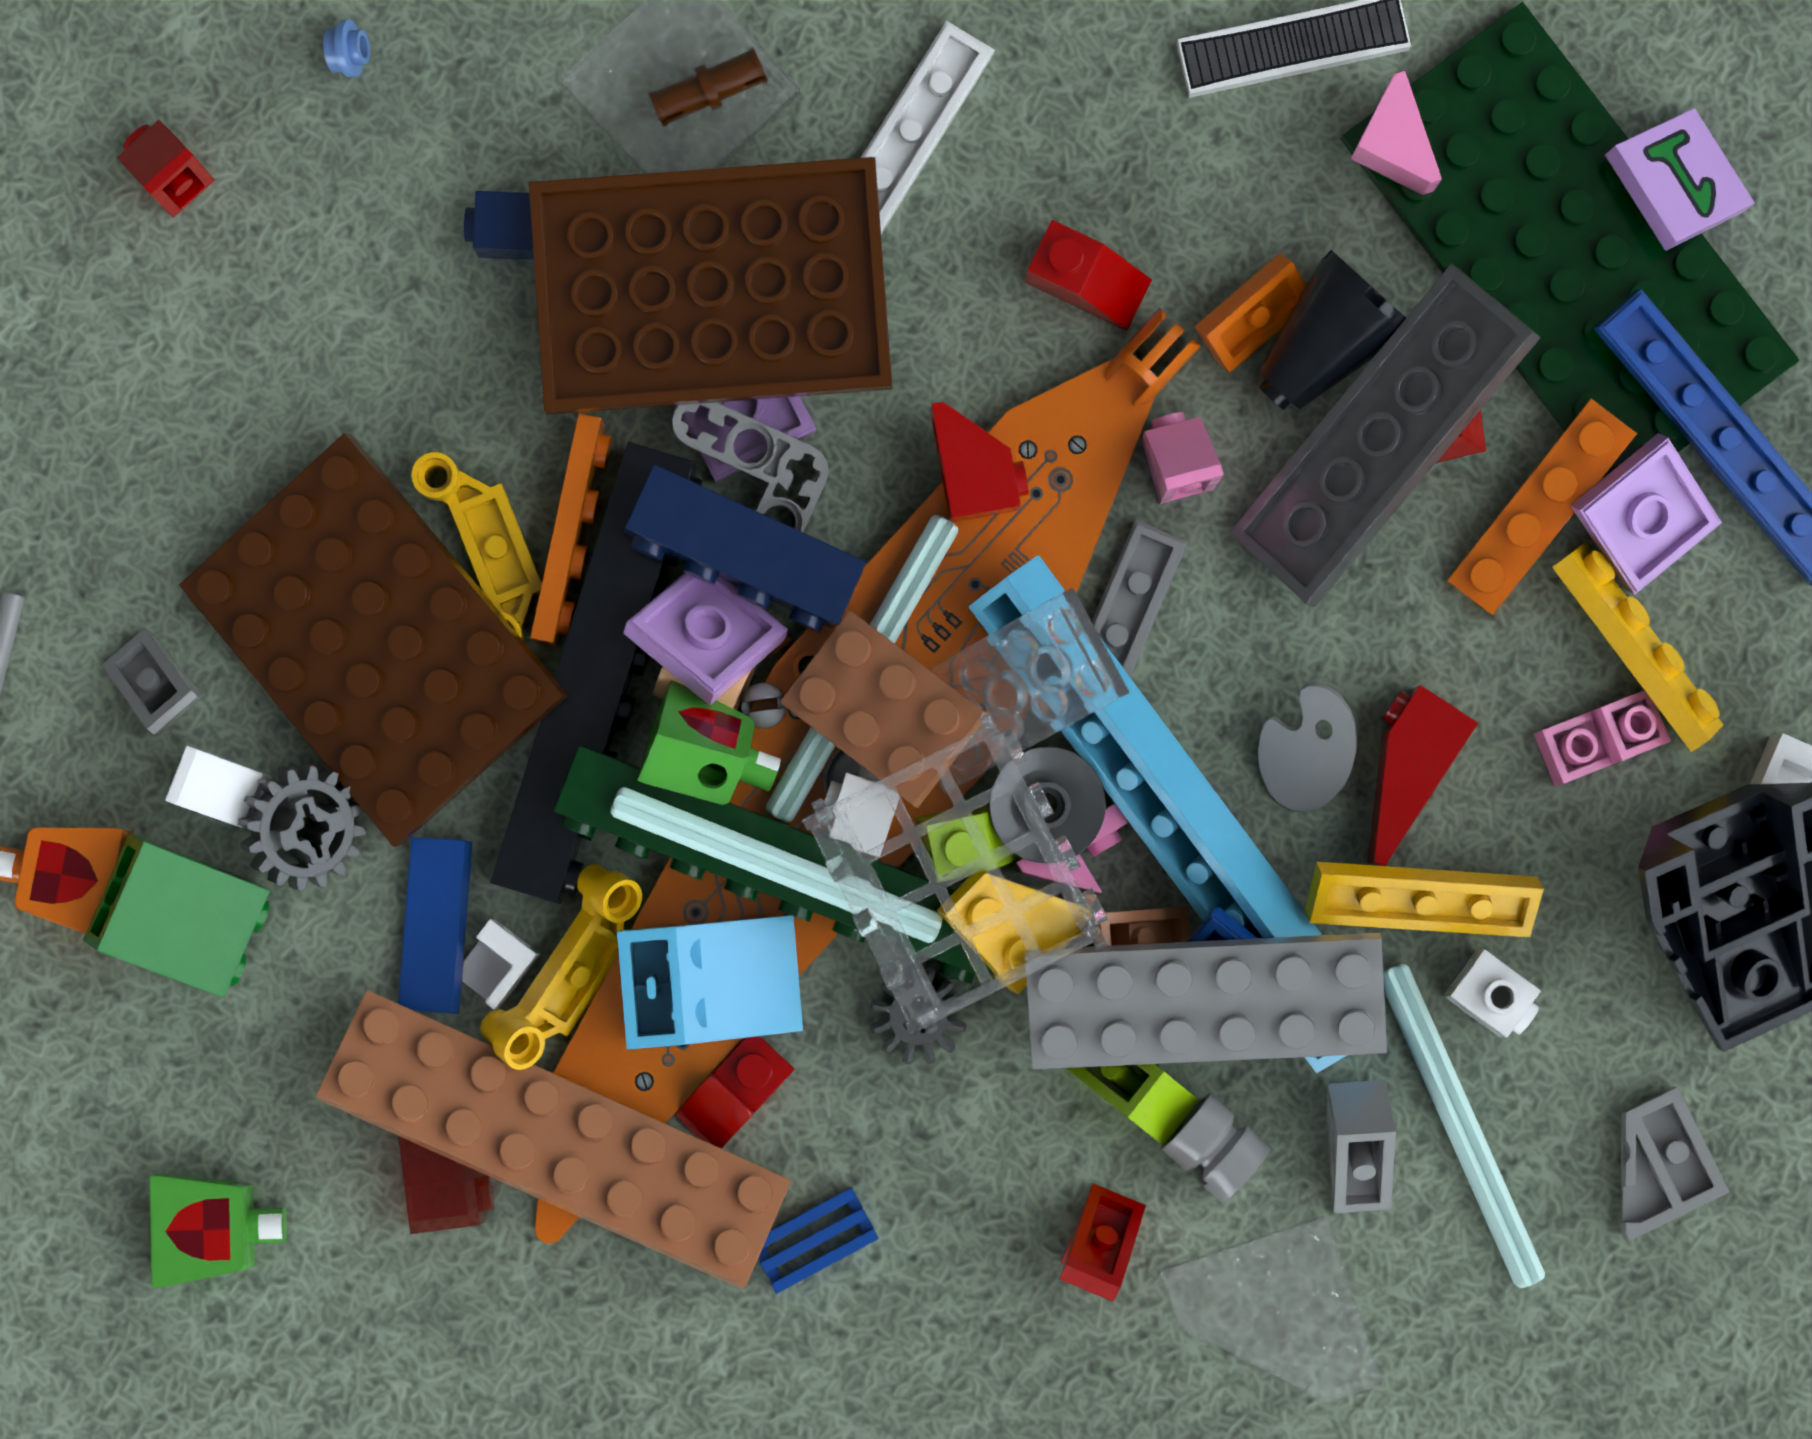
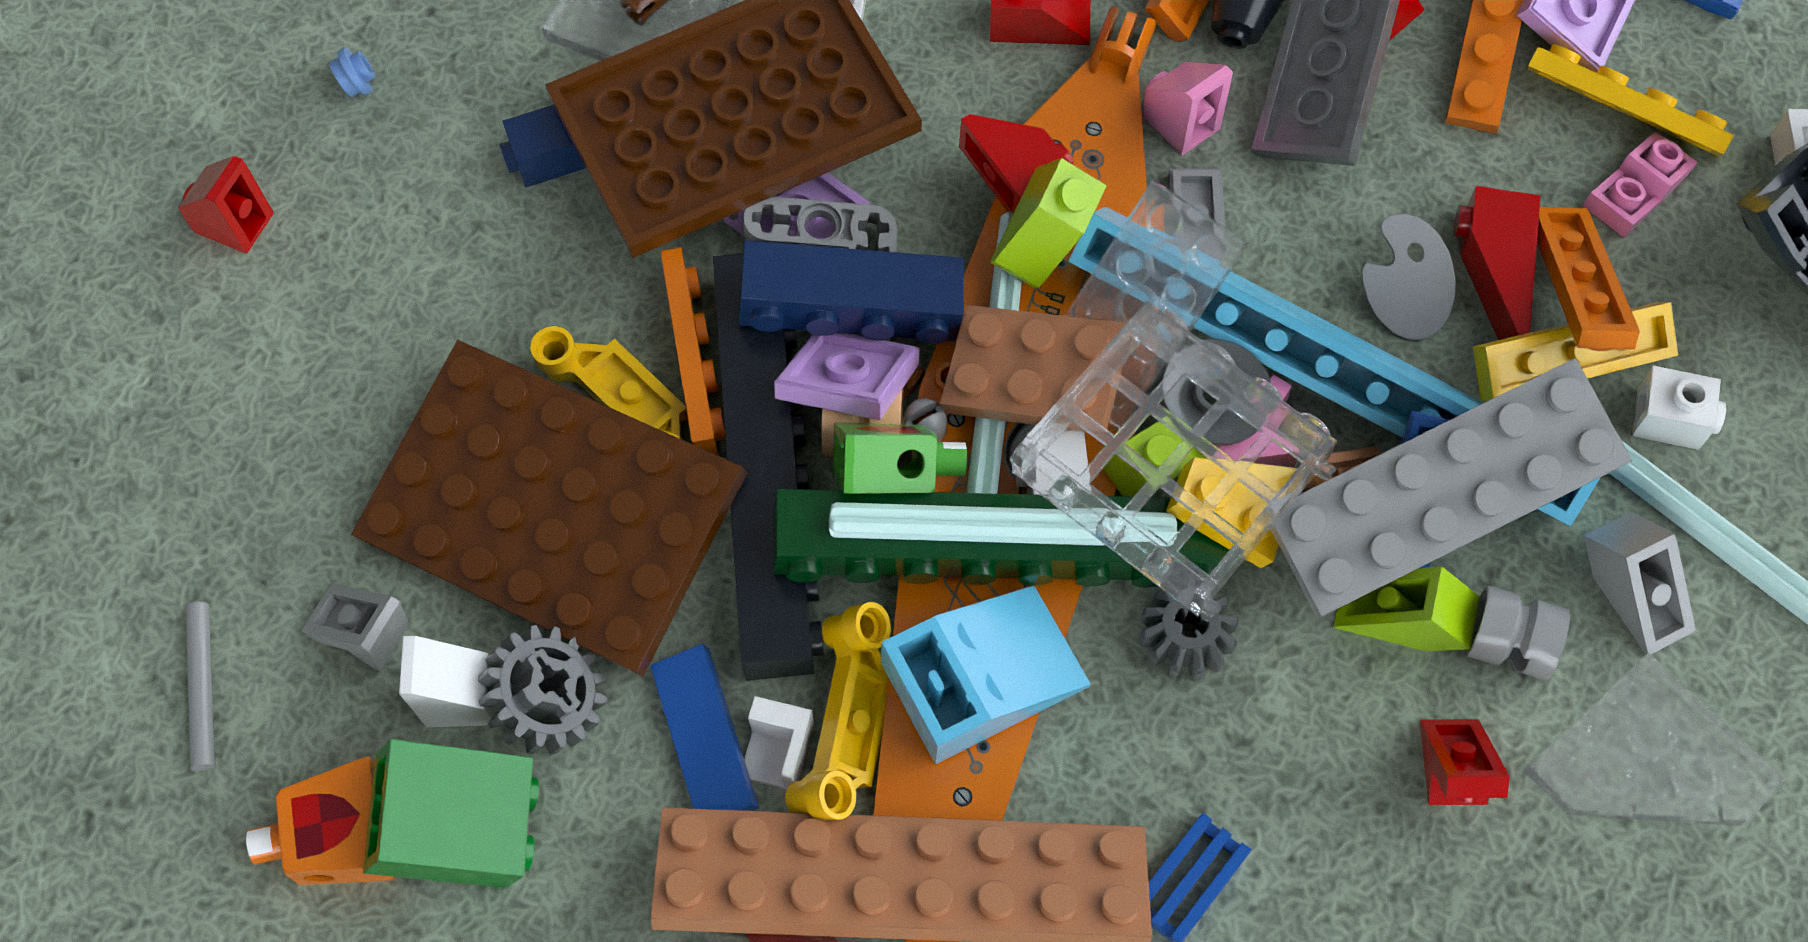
camera: 20 degrees left, 20 degrees down
(734, 1091) = (1051, 769): red slope -> none
(964, 559) = (1047, 221): none -> lime slope
(1466, 832) = (1585, 280): none -> orange plate

